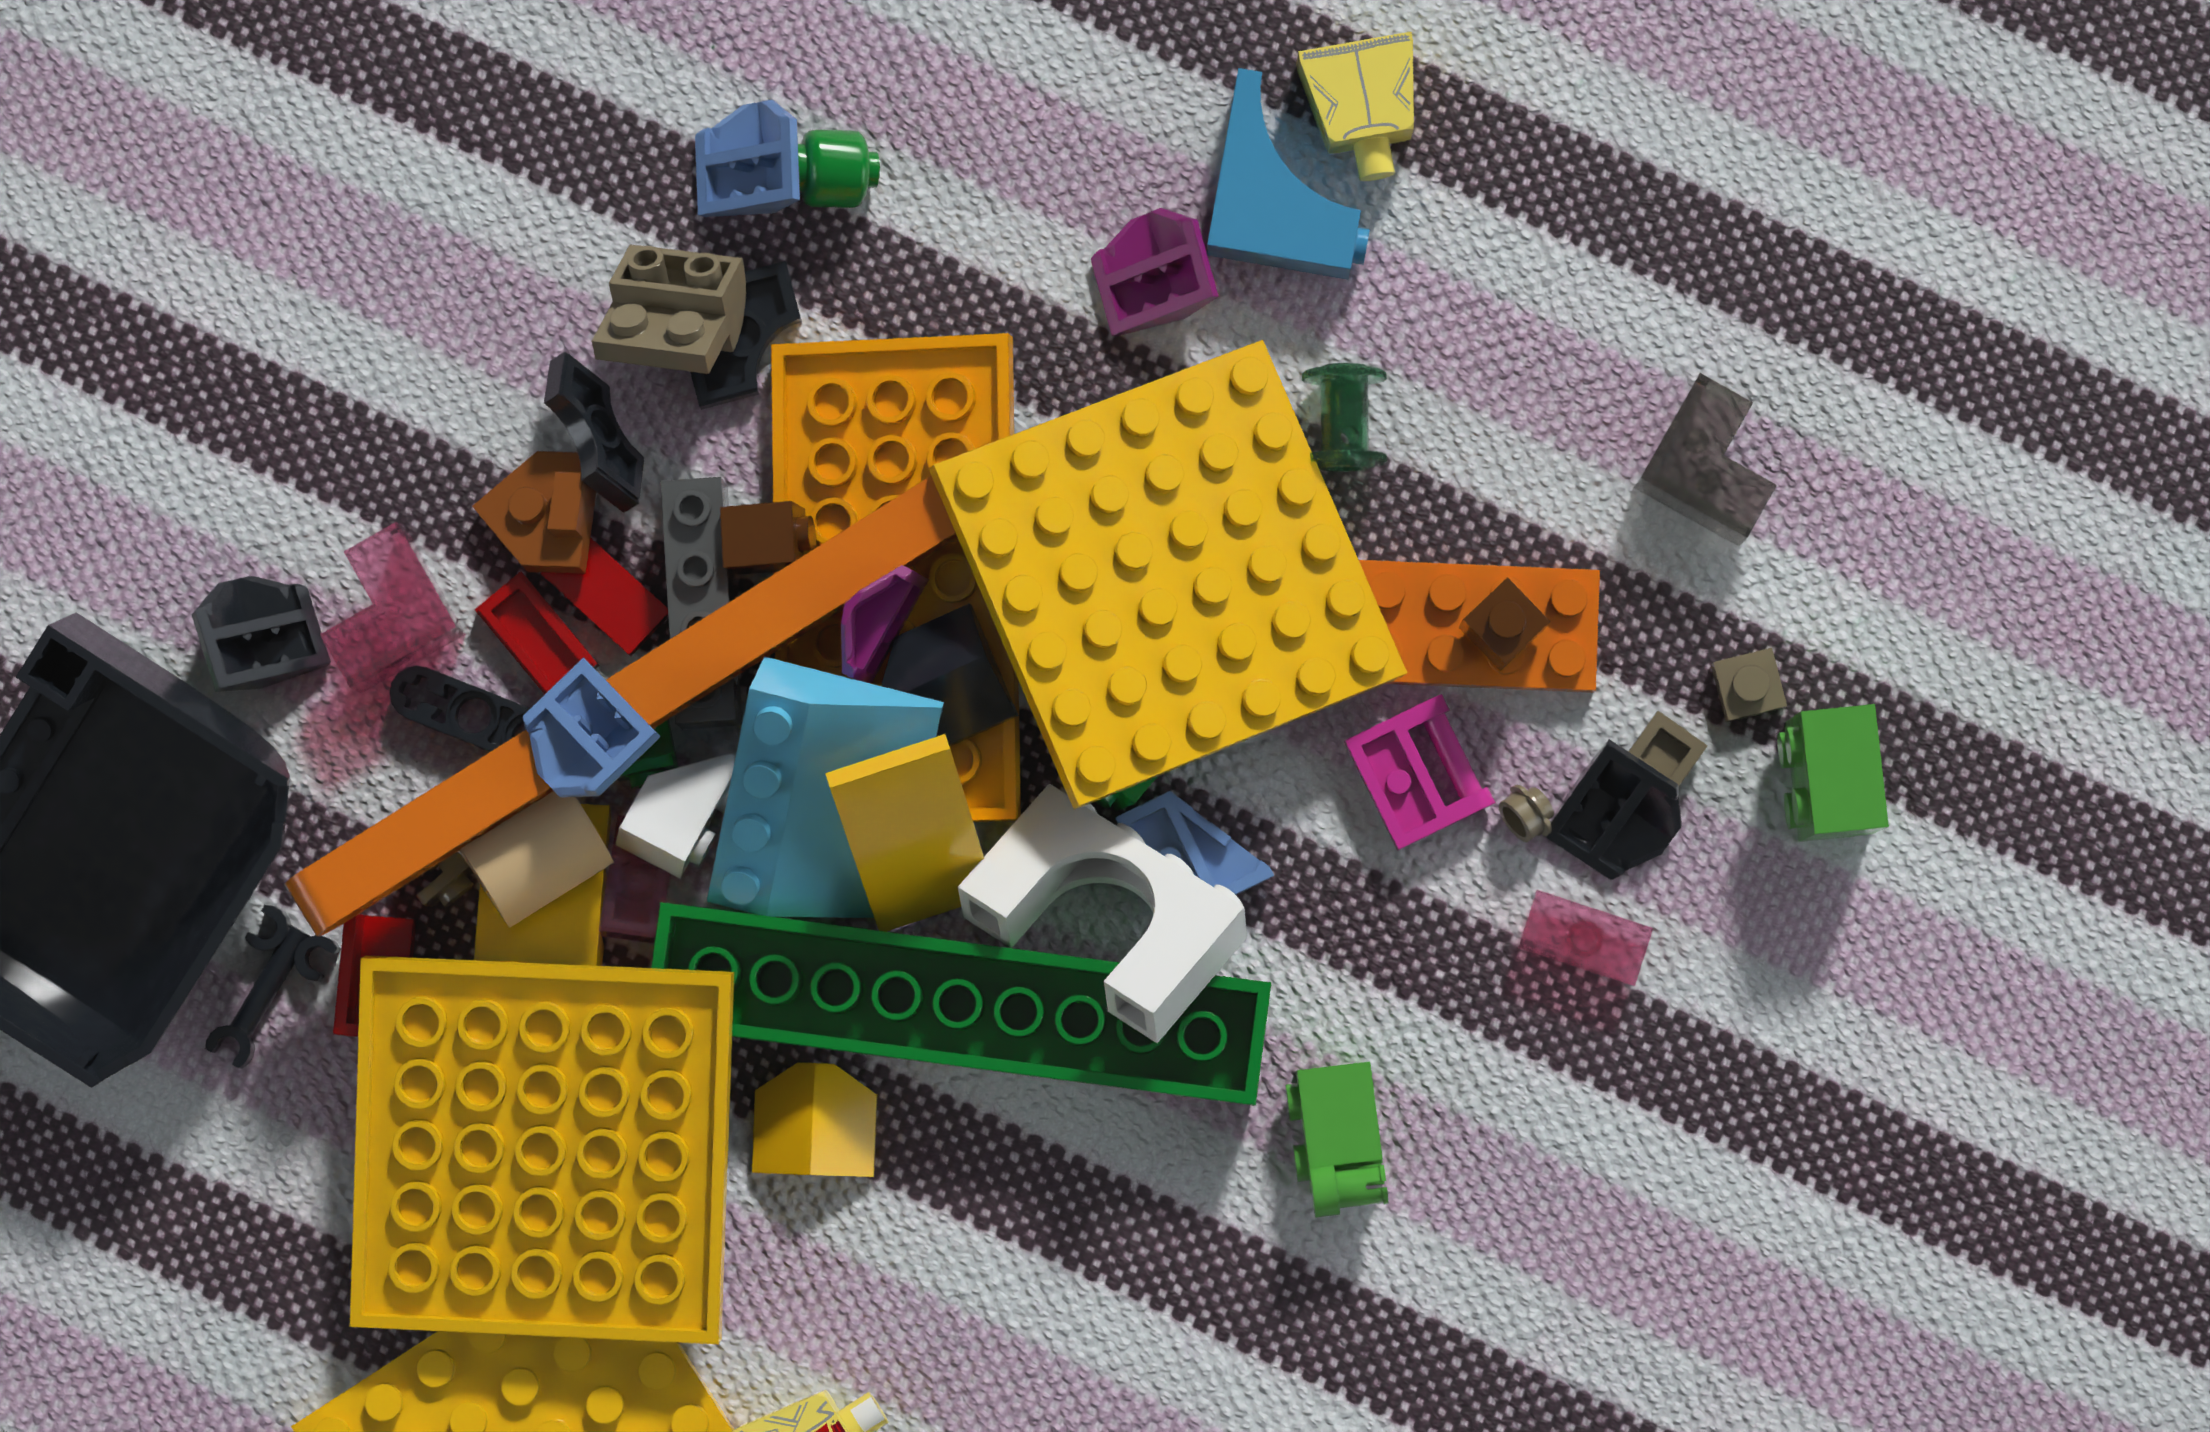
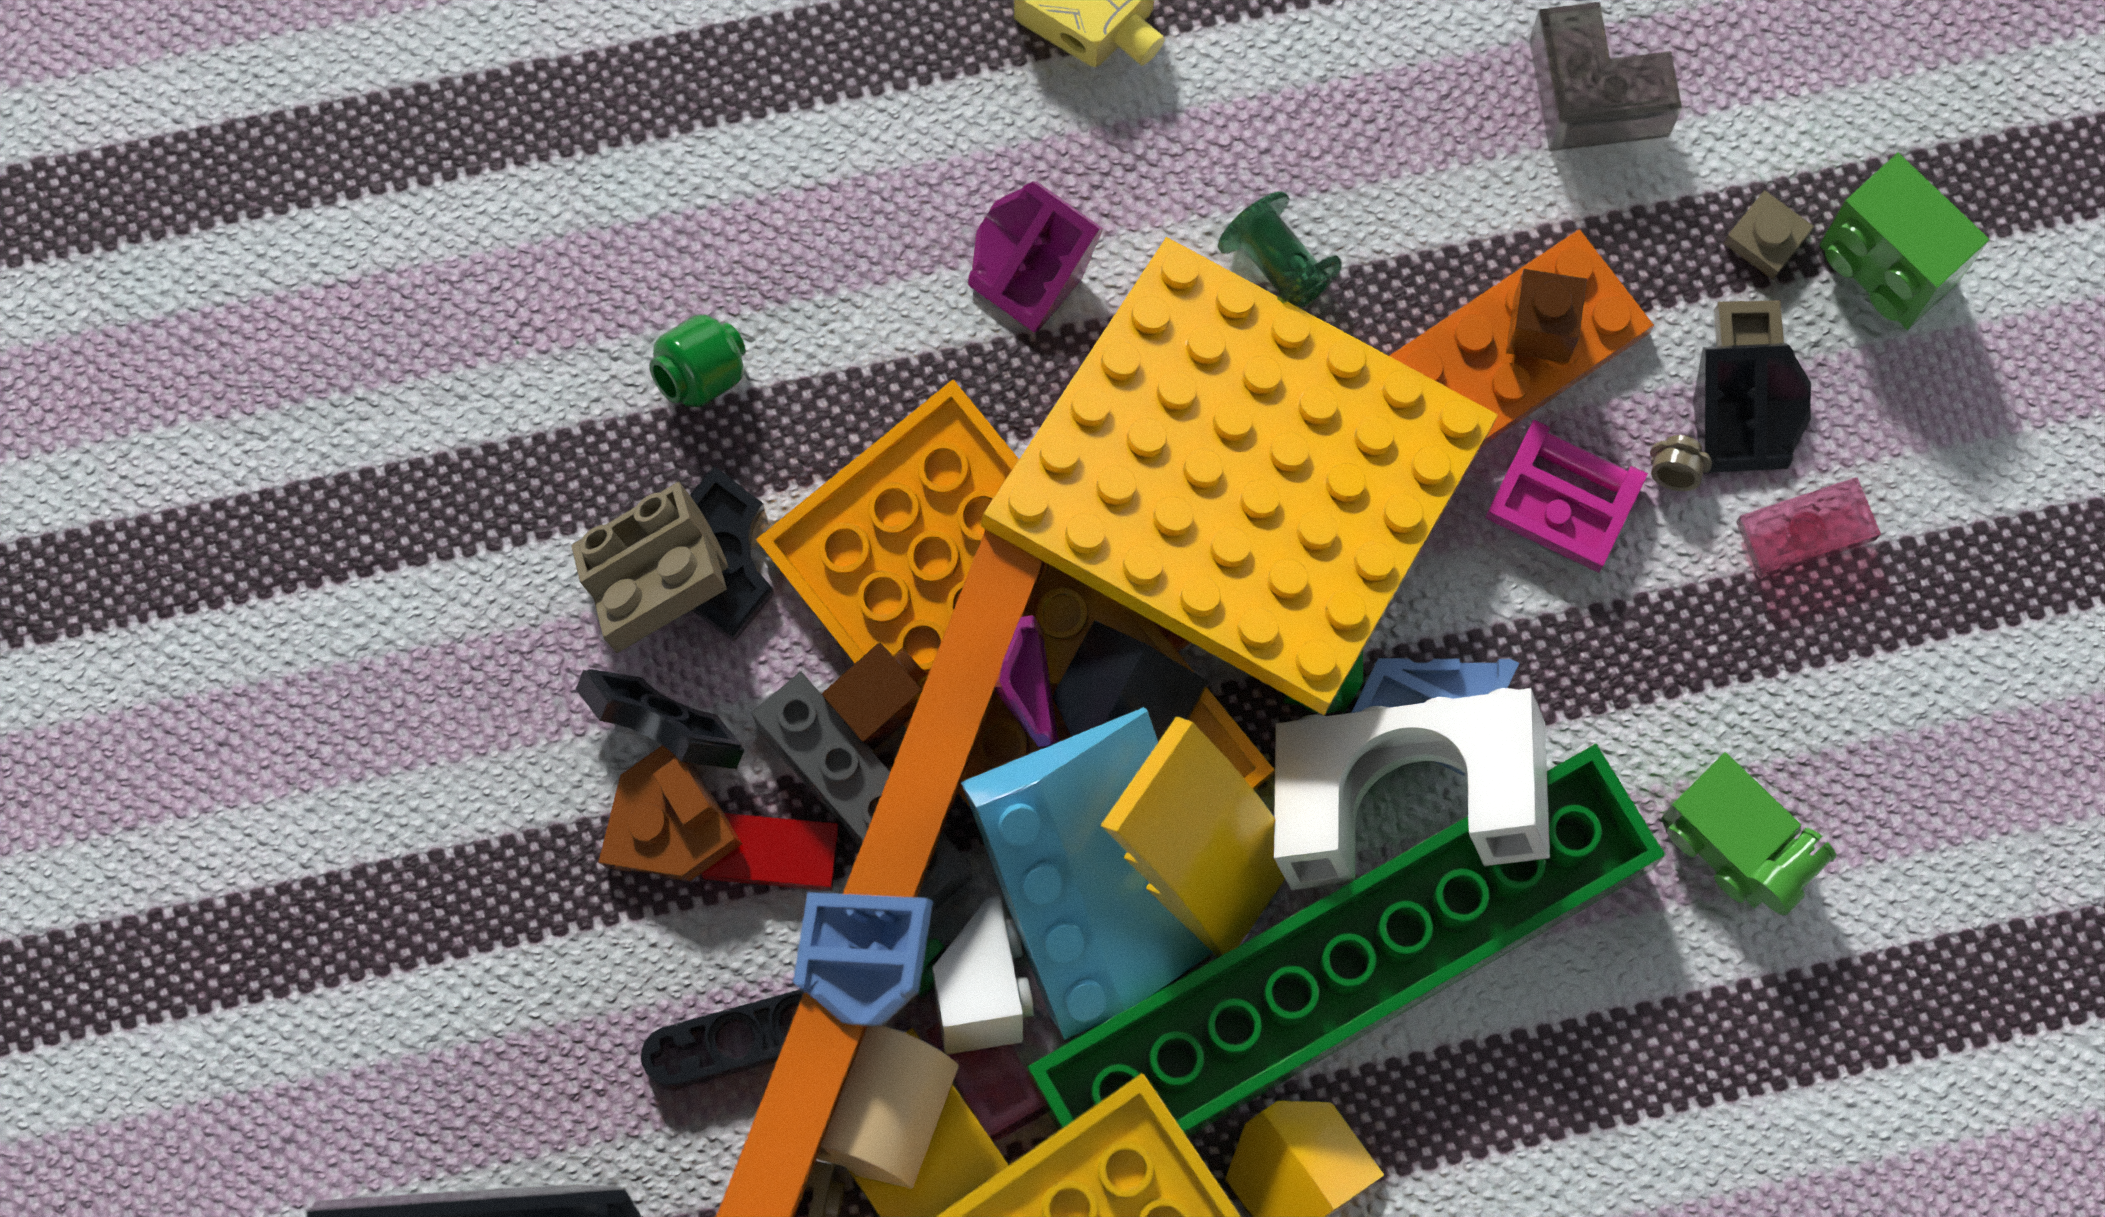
camera: 45 degrees left, 10 degrees down
(258, 633) = (492, 1108): black slope -> none
(406, 616) = (614, 996): clear pink panel -> none
(533, 632) = (736, 933): red tile -> none
(748, 162) = (623, 407): medium blue slope -> none
(1266, 211) = (1081, 138): dark azure arch -> none

